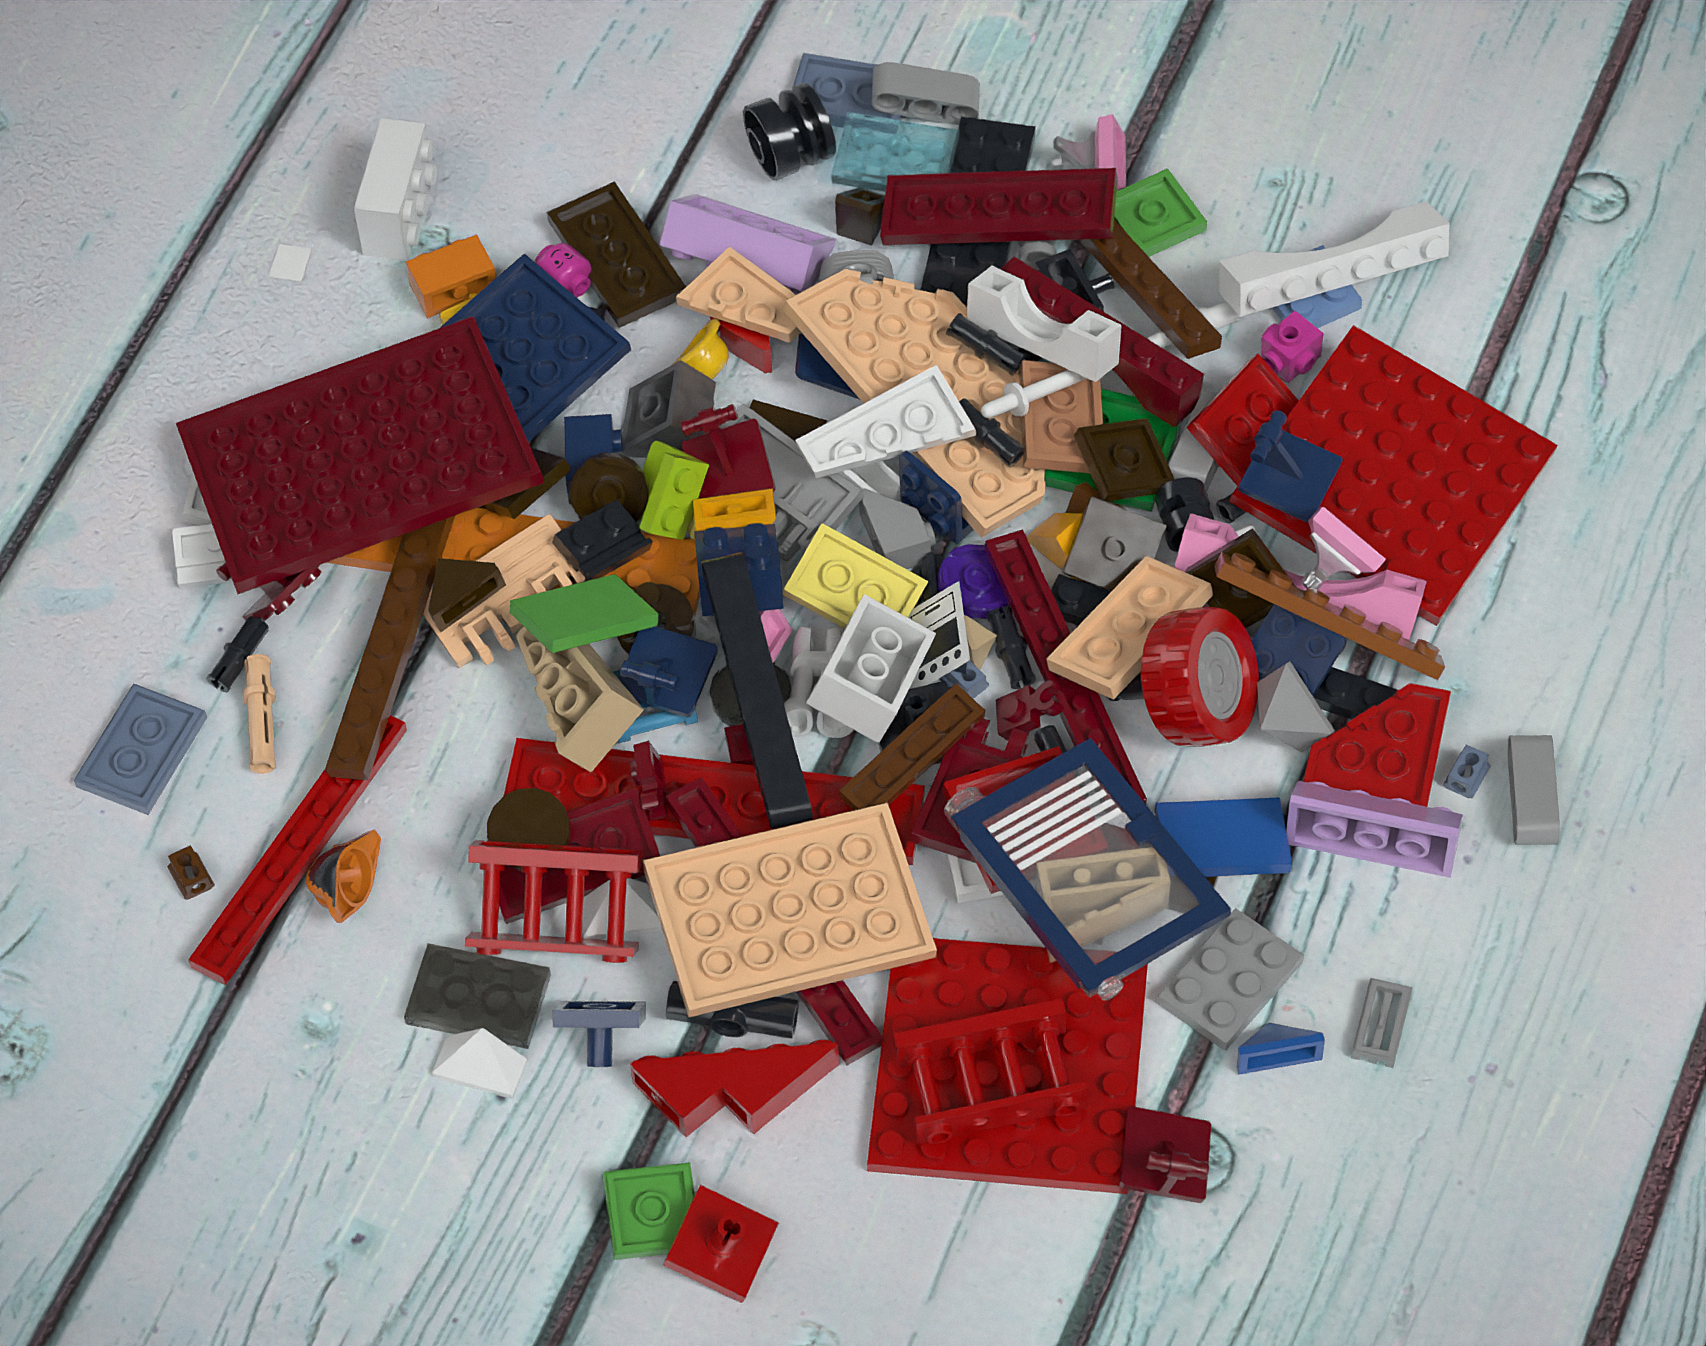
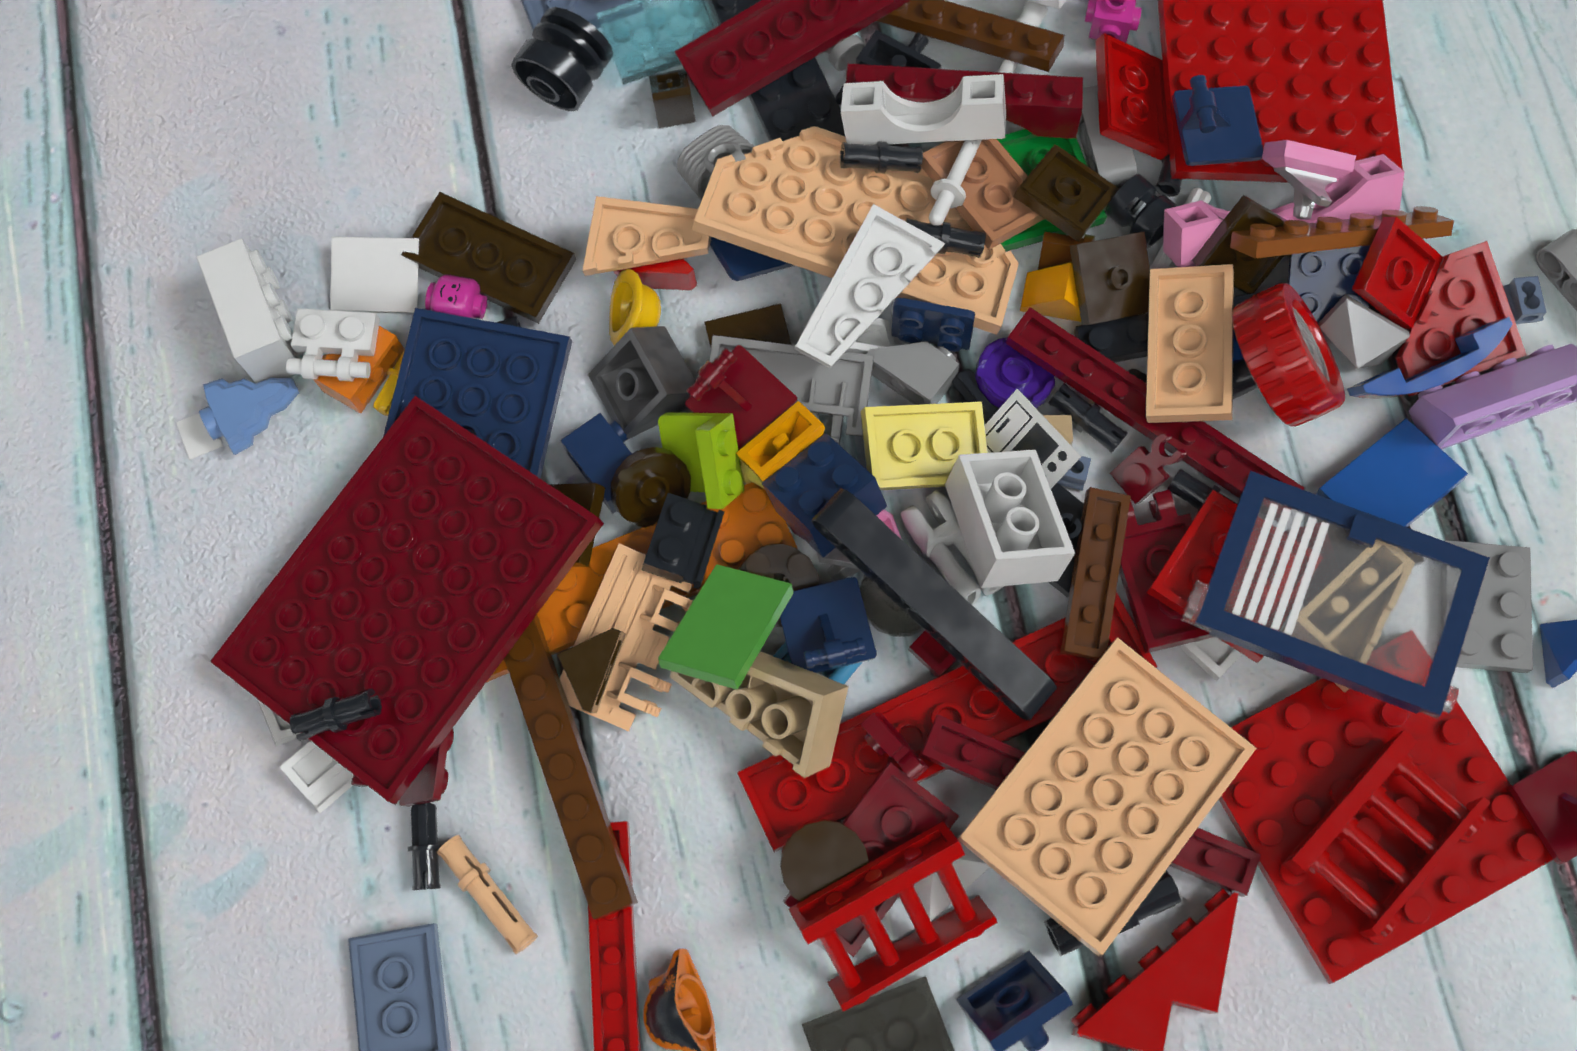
camera: 30 degrees left, 15 degrees up
(240, 501) = (335, 714): none -> black pin
(338, 259) = (244, 408): none -> medium blue rock
(444, 236) = (333, 333): none -> white plate
(514, 216) = (373, 274): none -> white sticker
(782, 250) = (567, 182): lavender slope -> none
(1351, 671) = (1397, 272): none -> red plate
(1380, 763) = (1473, 347): none -> blue slope

